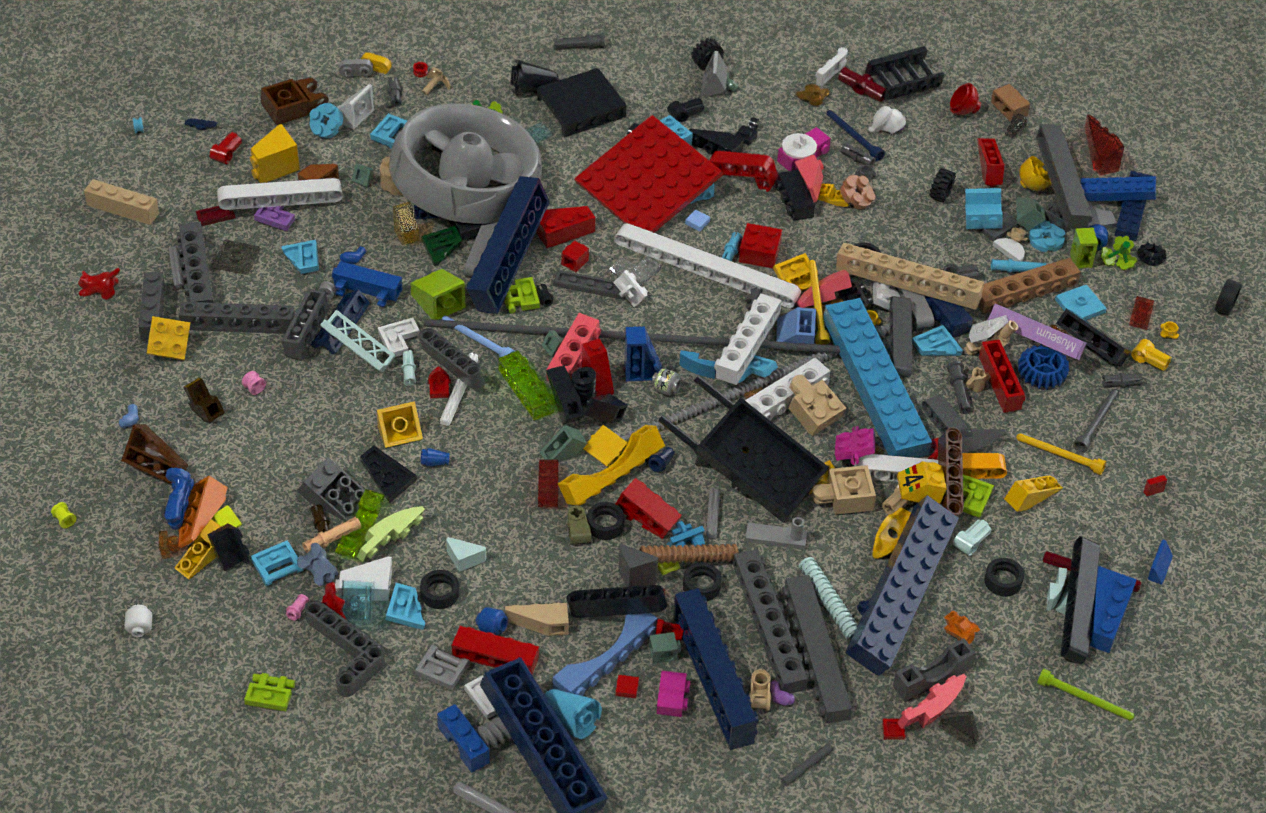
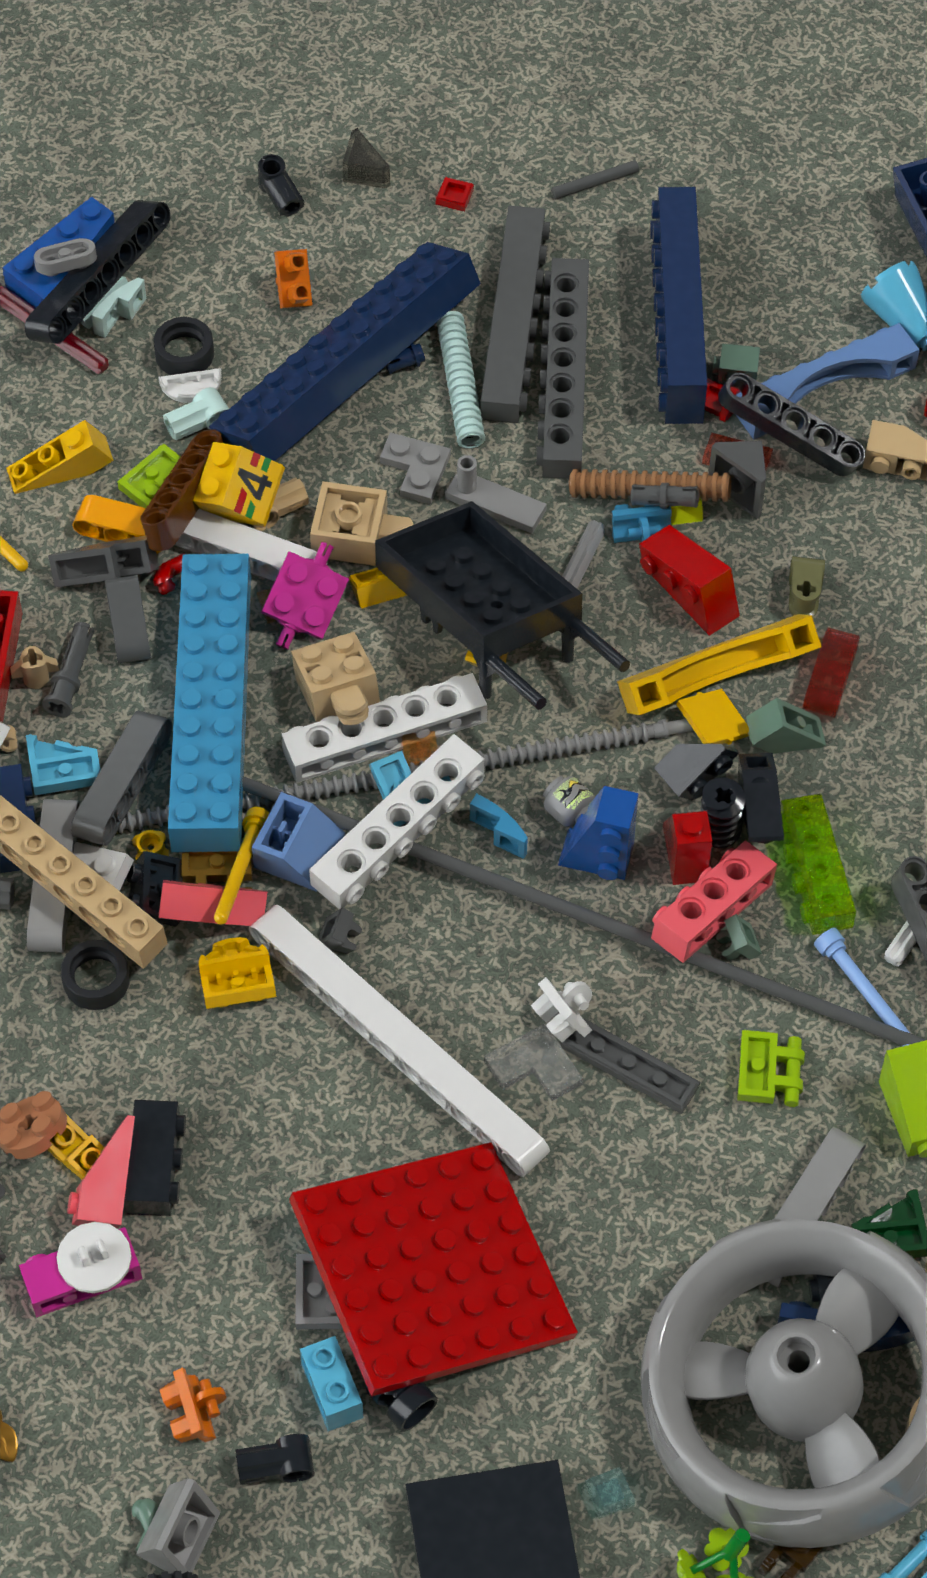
camera: 160 degrees left, 10 degrees up
(508, 245) = (775, 1136): dark blue brick -> none
(546, 299) = (725, 1054): black pin -> none
(565, 225) = (641, 1203): red wedge -> none
(575, 256) = (640, 1125): red brick -> none
(605, 508) = (765, 565): black tyre -> none
(627, 686) = (807, 338): red tile -> none
(661, 459) = (639, 662): dark blue cone -> none
(671, 693) = (748, 303): dark pink brick -> none
(676, 537) = (665, 495): none -> dark grey pin
(697, 220) = (367, 1157): light blue tile -> none
(707, 570) = (641, 432): black tyre -> none
(716, 141) = (242, 1335): black slope -> none
(728, 117) = (199, 1404): none -> orange hips
(731, 248) = (333, 1067): medium azure pin -> none
(747, 165) = (231, 1249): red beam -> none
(748, 133) = (168, 1358): black plate -> none
(760, 245) = (278, 1048): red brick -> none
(760, 693) = (622, 277): tan piece -> none
(779, 696) = (596, 270): medium lavender arm -> none
(830, 550) = (422, 461): none -> light grey plate
(883, 542) = (325, 445): yellow piece -> none
(916, 680) = (396, 231): dark grey arch -> none
(934, 704) = (387, 191): coral slope -> none
(984, 557) = (186, 385): none -> white tile
(1010, 698) = (278, 185): none -> black piece
(1048, 679) = (207, 198): lime piece -> none
(1099, 583) = (65, 256): none -> light grey plate

